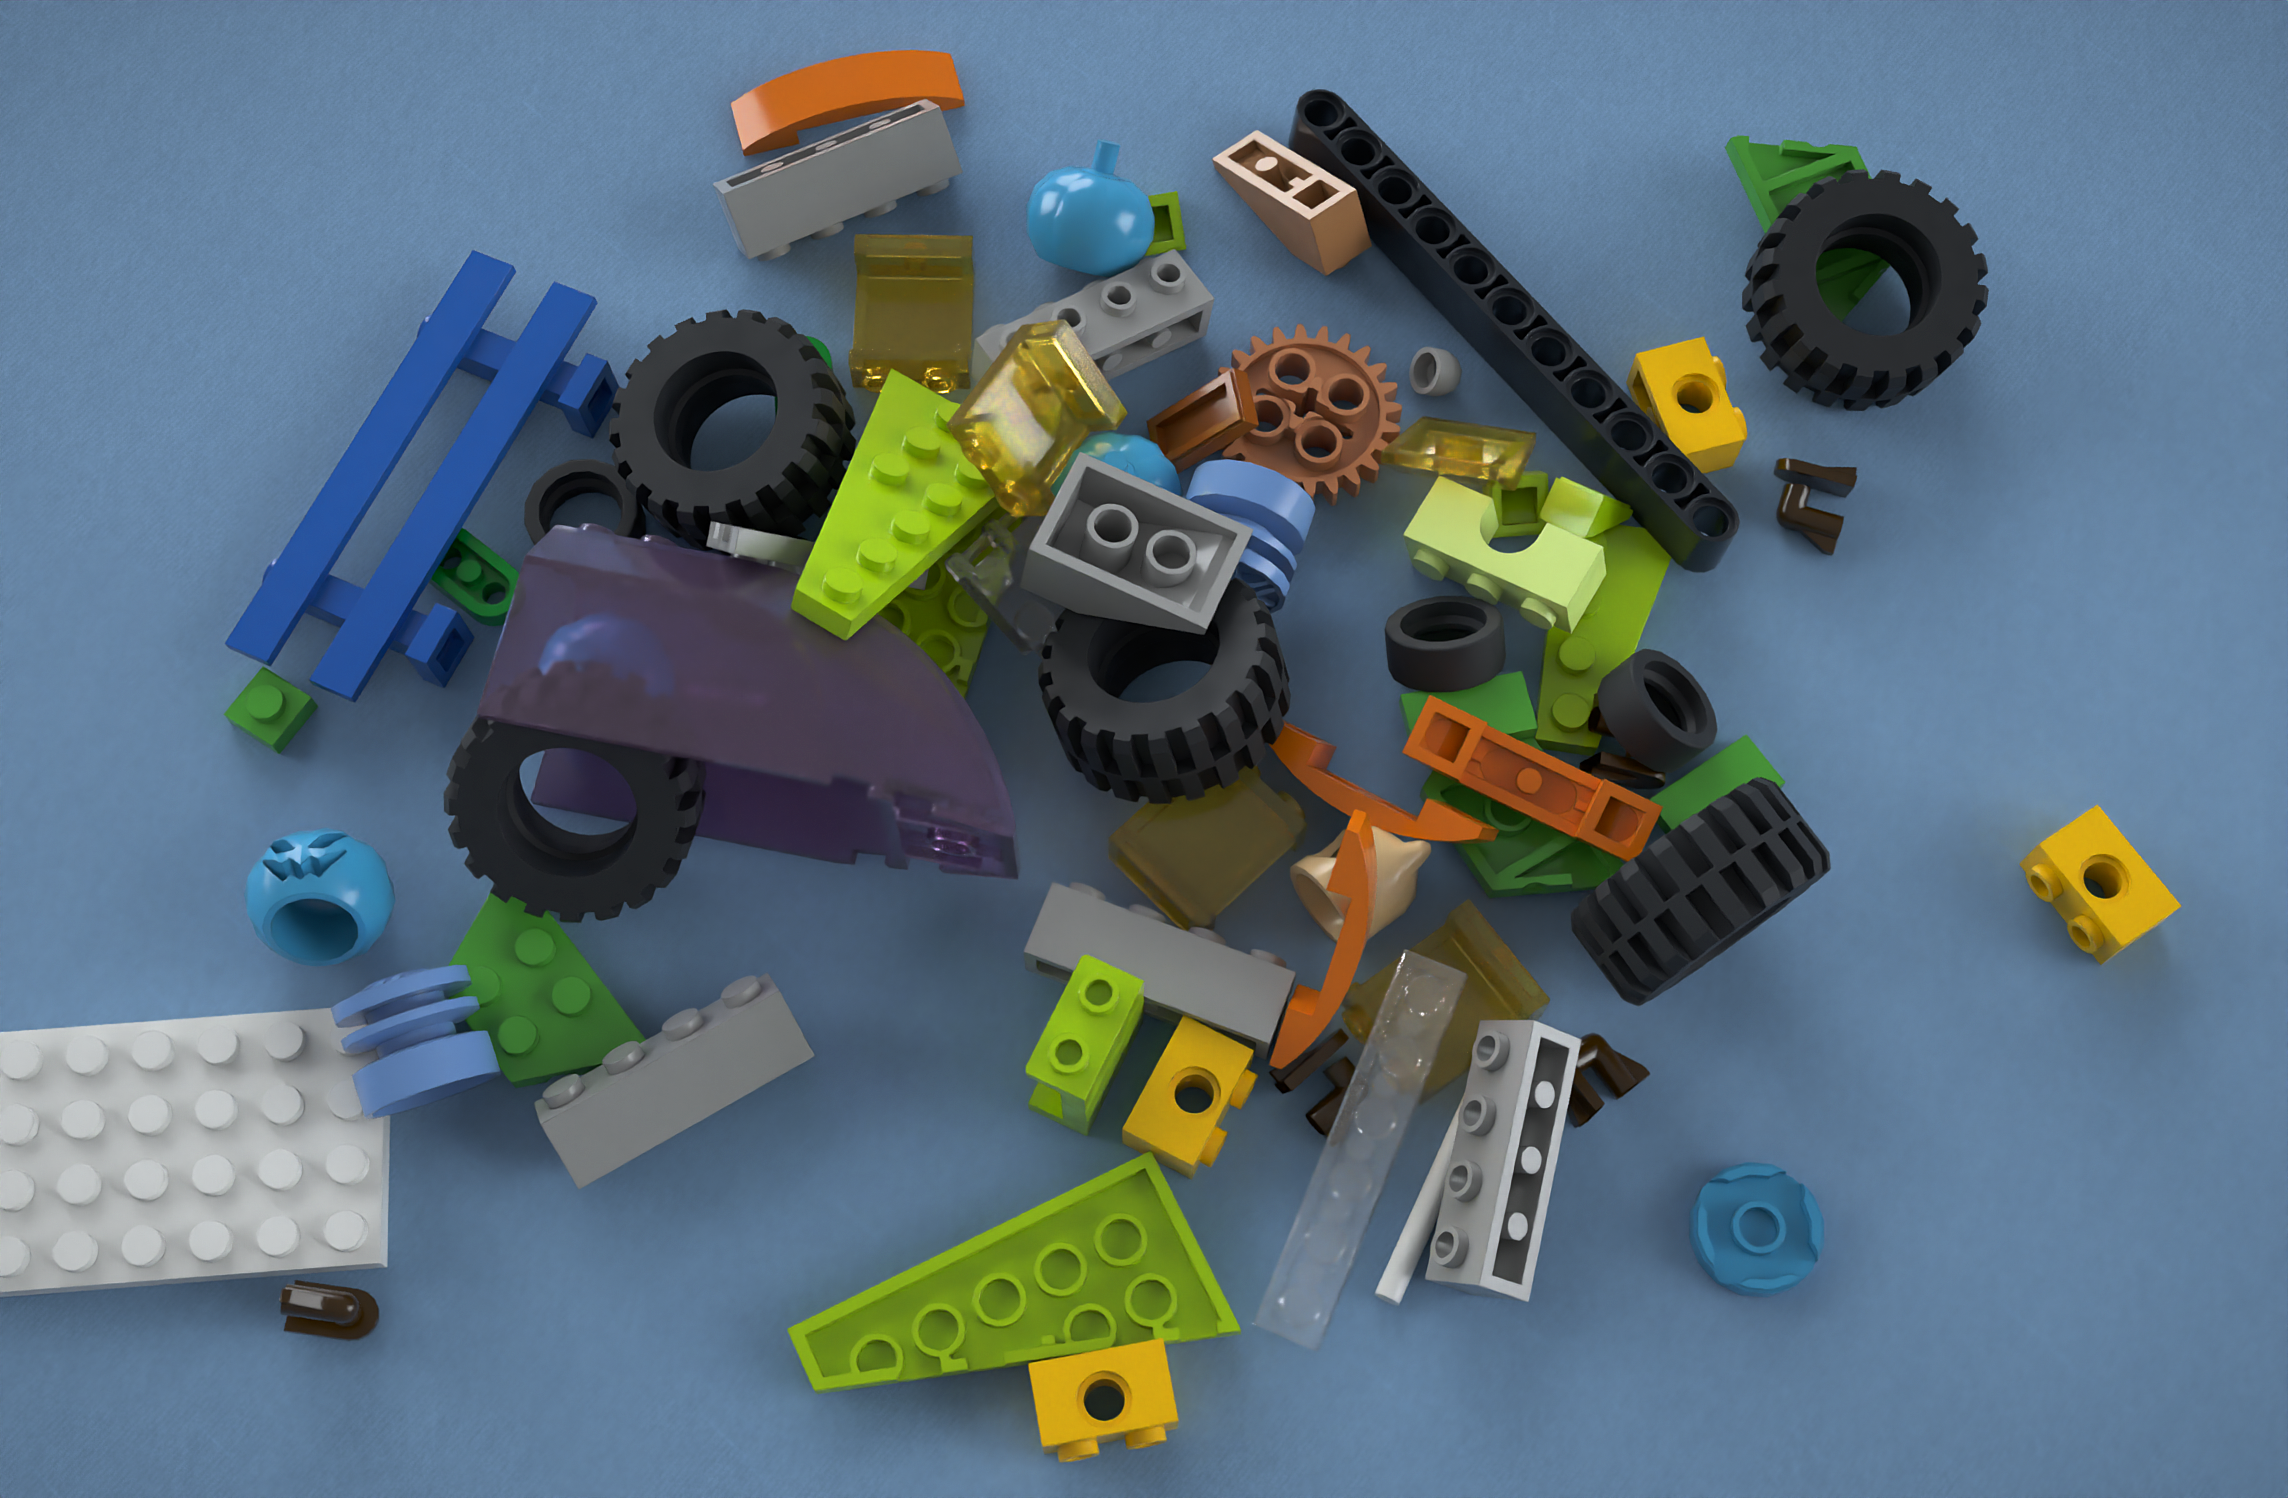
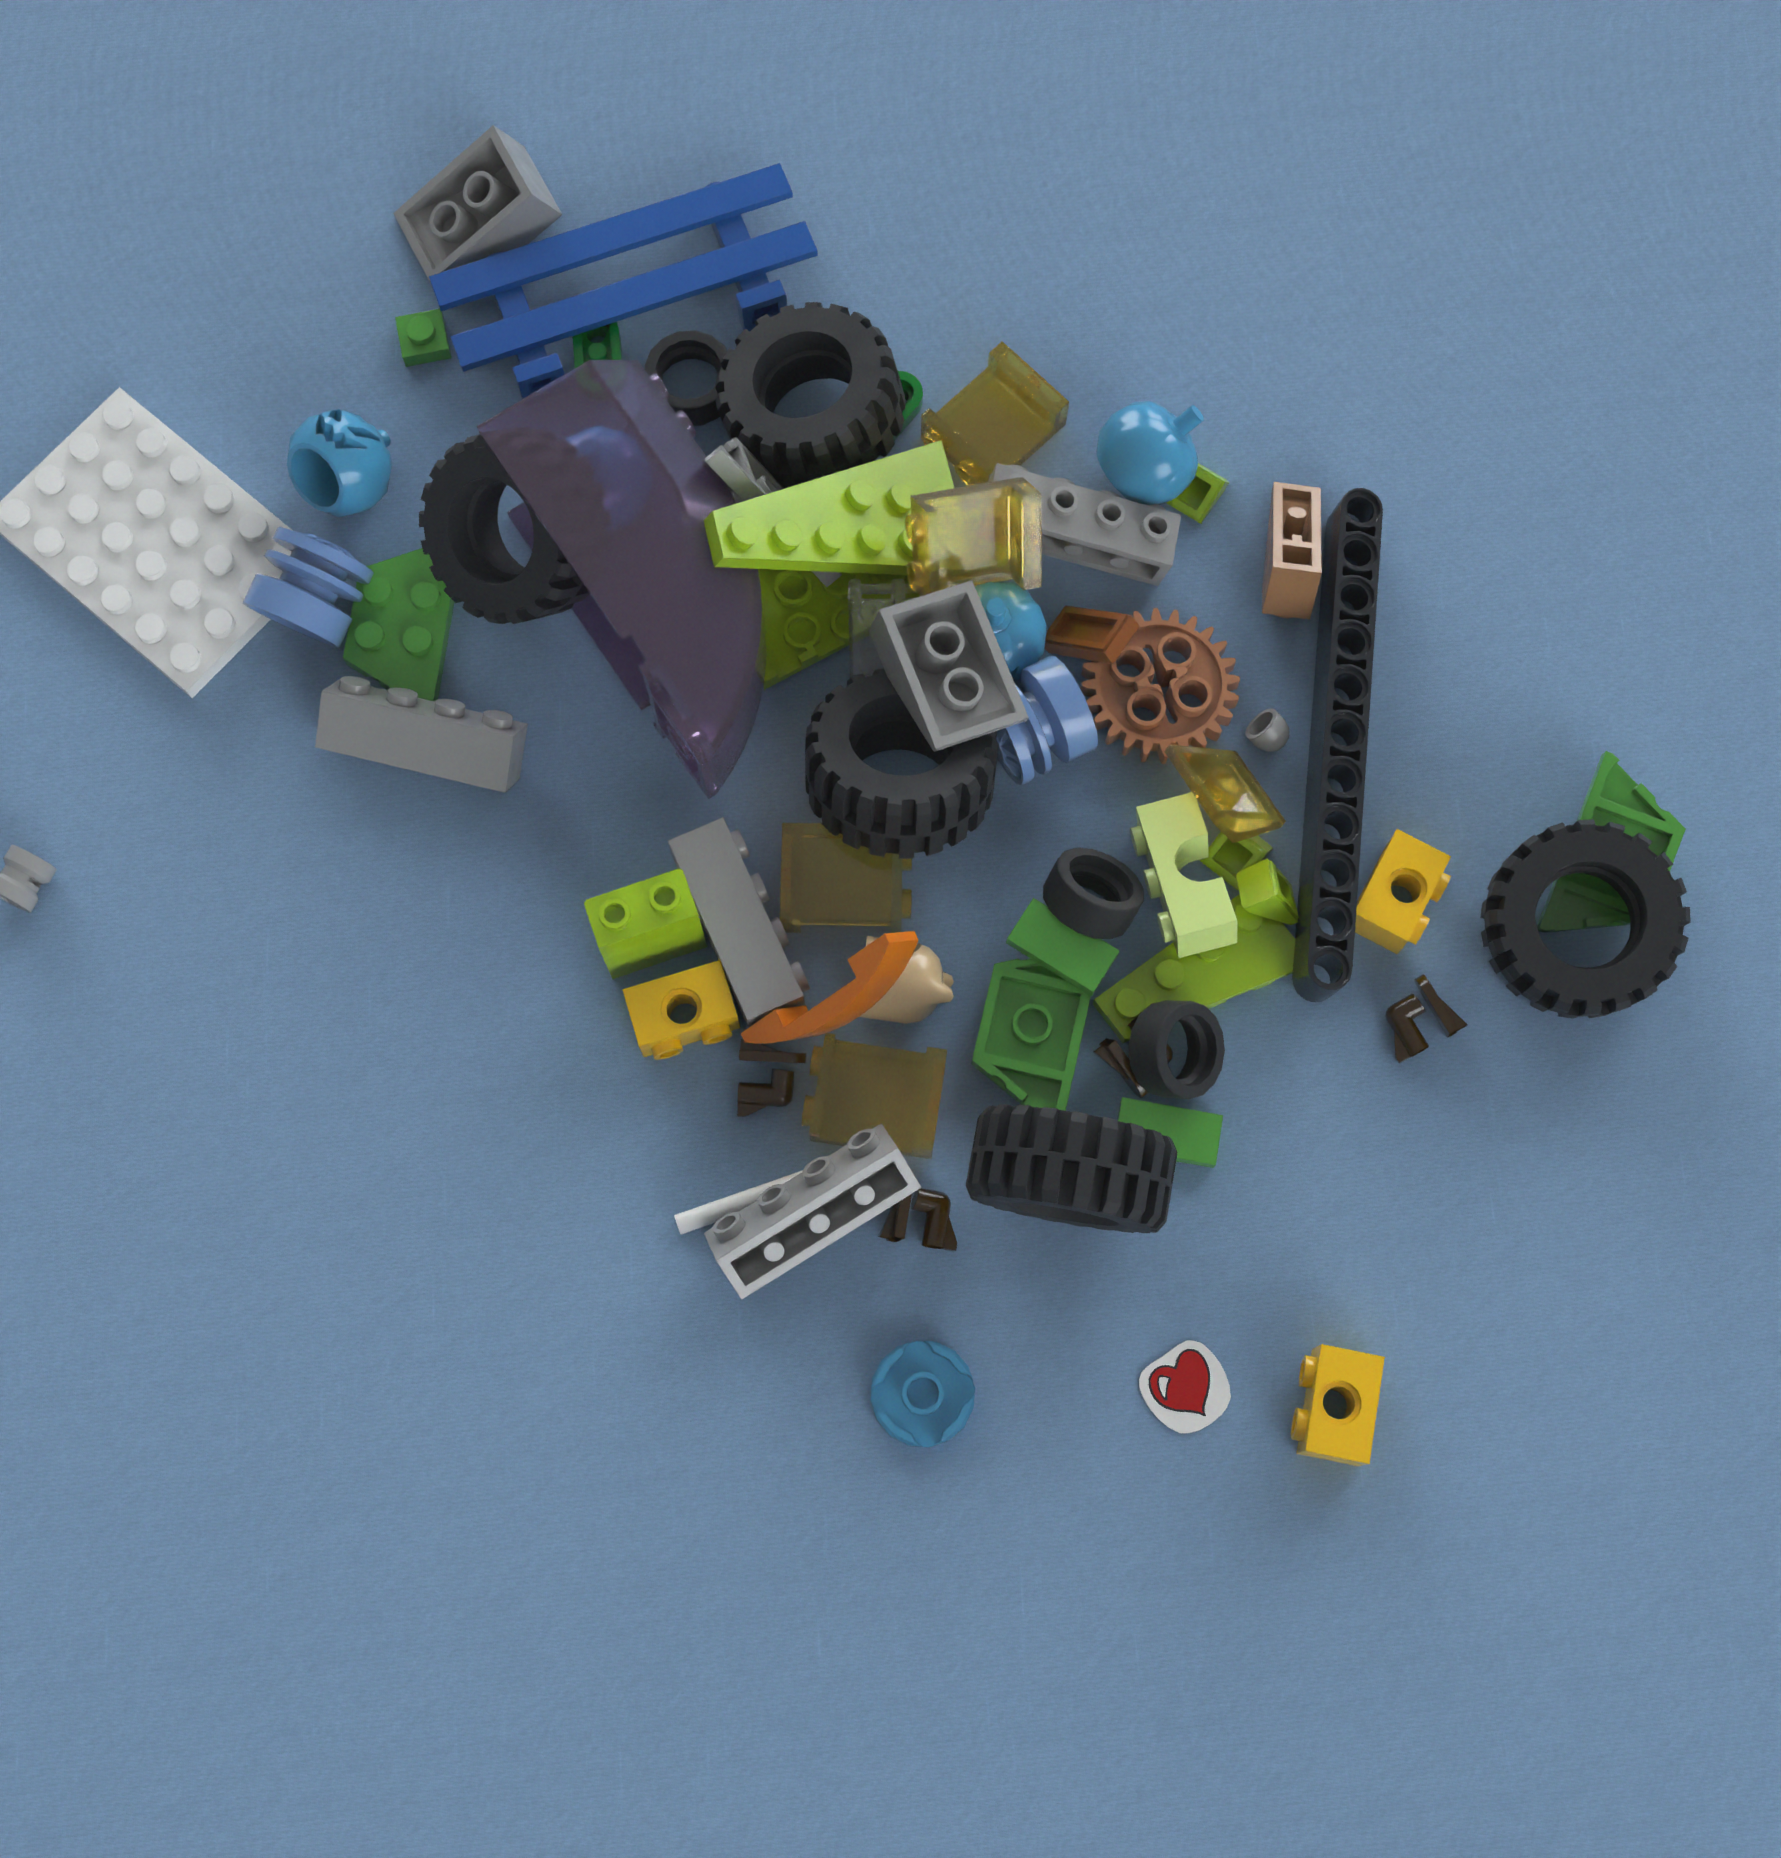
camera: 45 degrees right, 5 degrees up
(202, 541) = (478, 205): none -> light grey slope
(328, 1311) = (137, 690): dark brown piece -> none
(838, 180) = (1028, 300): light grey brick -> none
(842, 91) = (1096, 251): orange slope -> none
(1052, 1283) = (514, 1041): lime wing -> none
(1134, 1370) = (449, 1101): yellow brick -> none
(1361, 1150) = (739, 1126): clear plate -> none
(1437, 821) = (945, 886): orange slope -> none
(1531, 781) = (1052, 1014): orange slope -> none
(1958, 999) = (1186, 1387): none -> sticker

